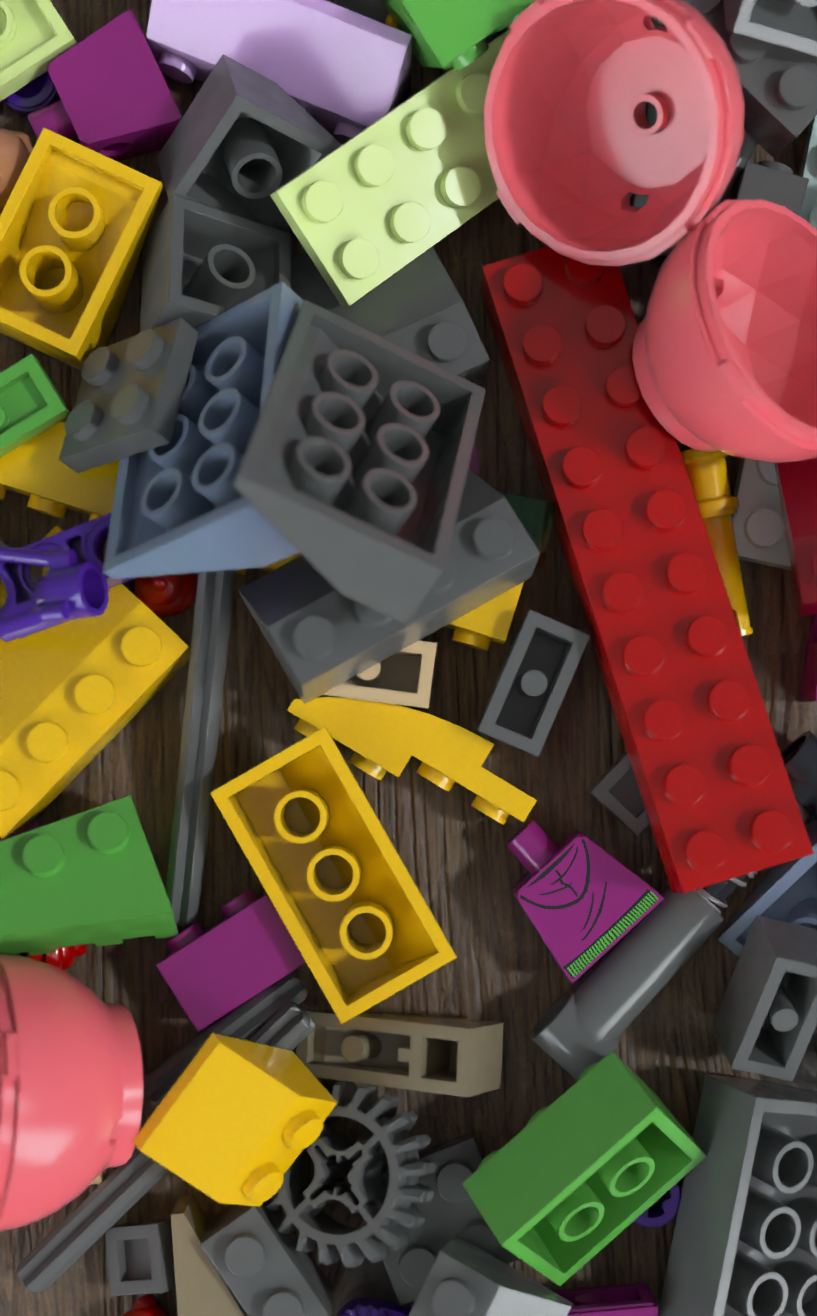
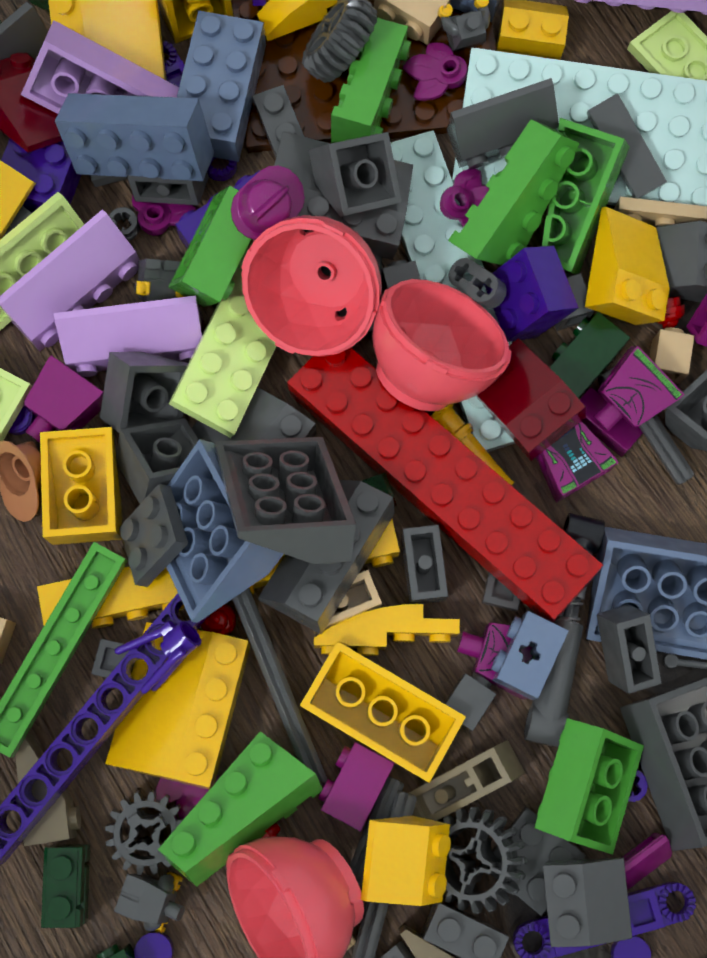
camera: 30 degrees left, 10 degrees down
(481, 929) = (471, 698): none -> dark grey brick
(646, 923) = (546, 643): none -> sand blue brick

